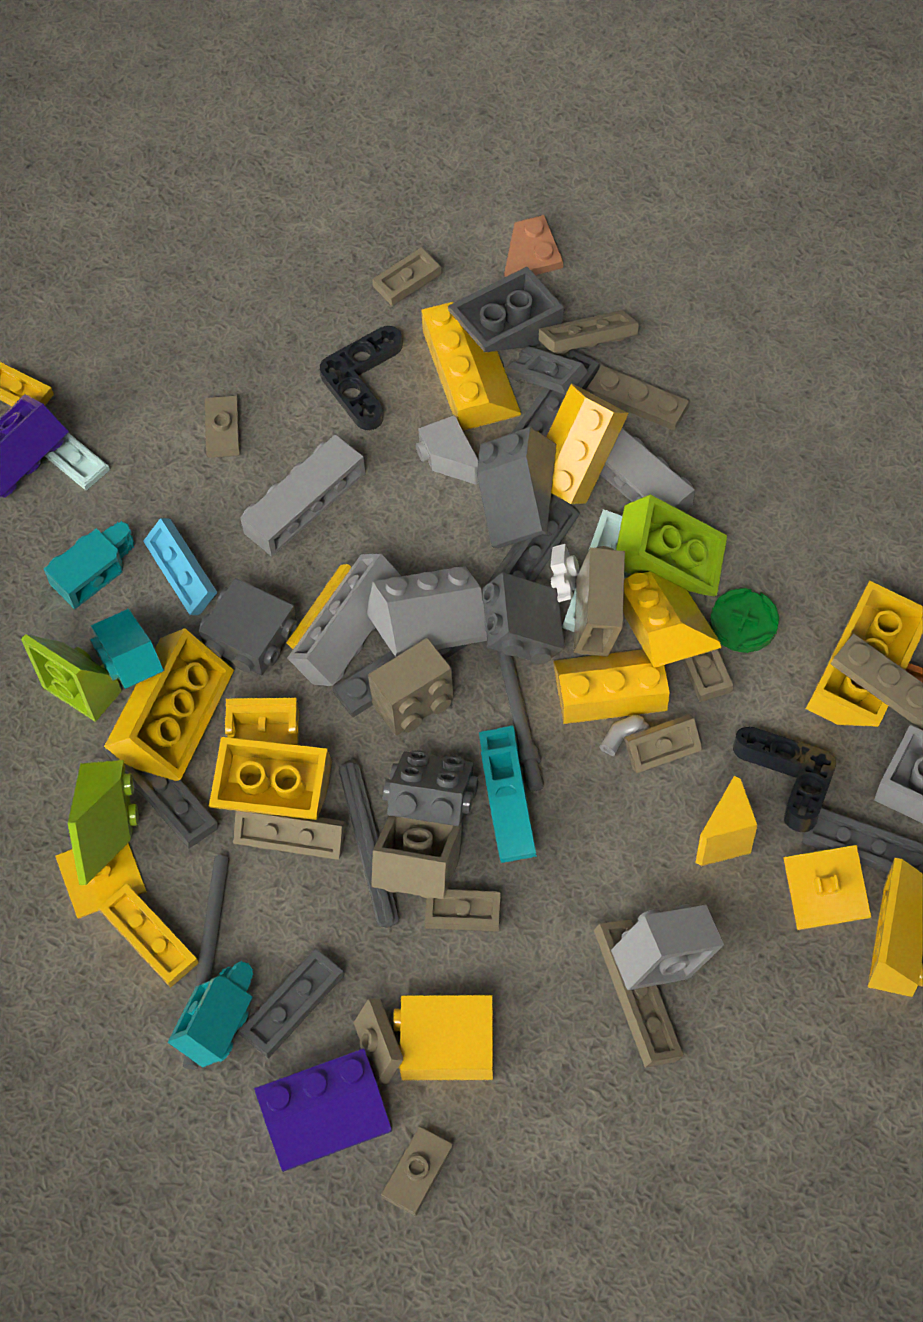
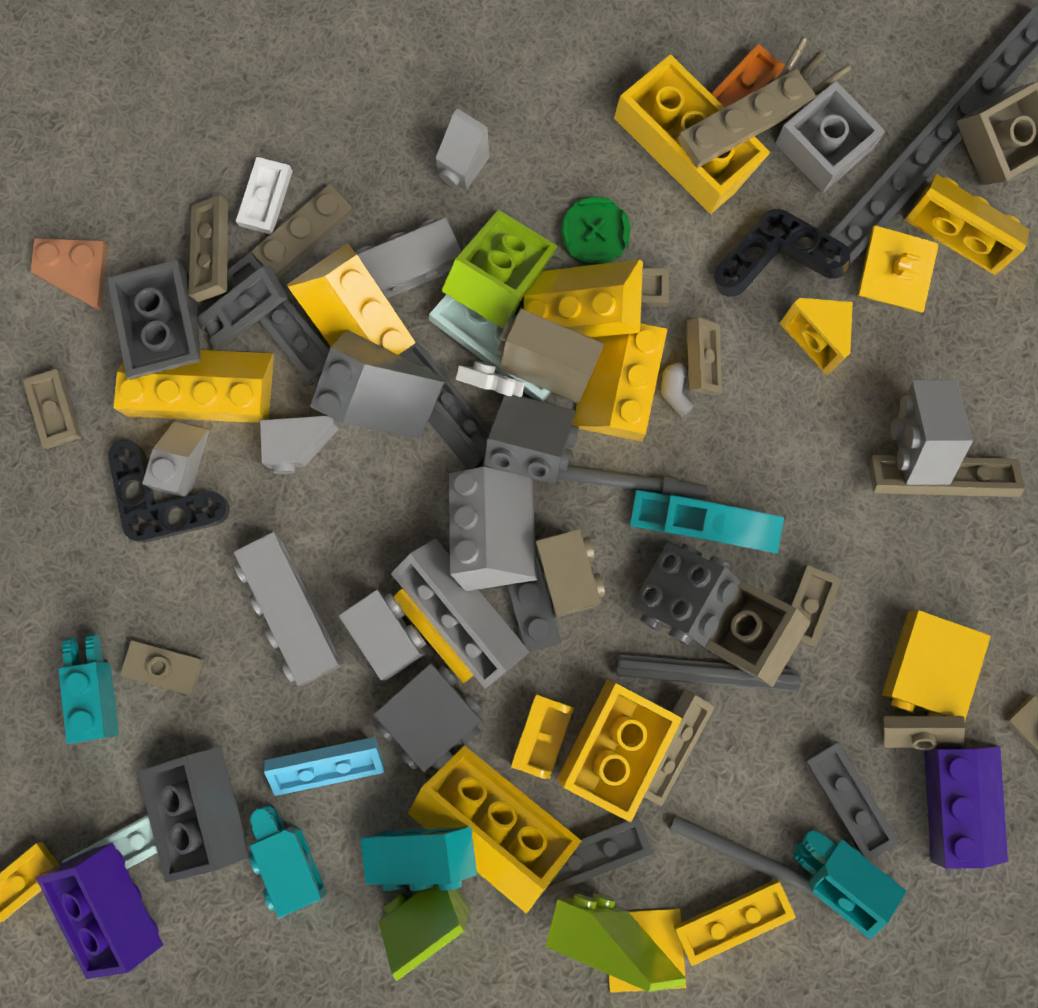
camera: 70 degrees left, 20 degrees up
(110, 485) = (193, 814): none -> dark grey slope
(182, 379) = (87, 693): none -> teal hinge
(304, 563) = (383, 634): none -> light grey brick
(398, 373) = (176, 460): none -> light grey slope
(655, 357) = (264, 195): none -> white plate
(760, 484) = (462, 150): none -> light grey slope

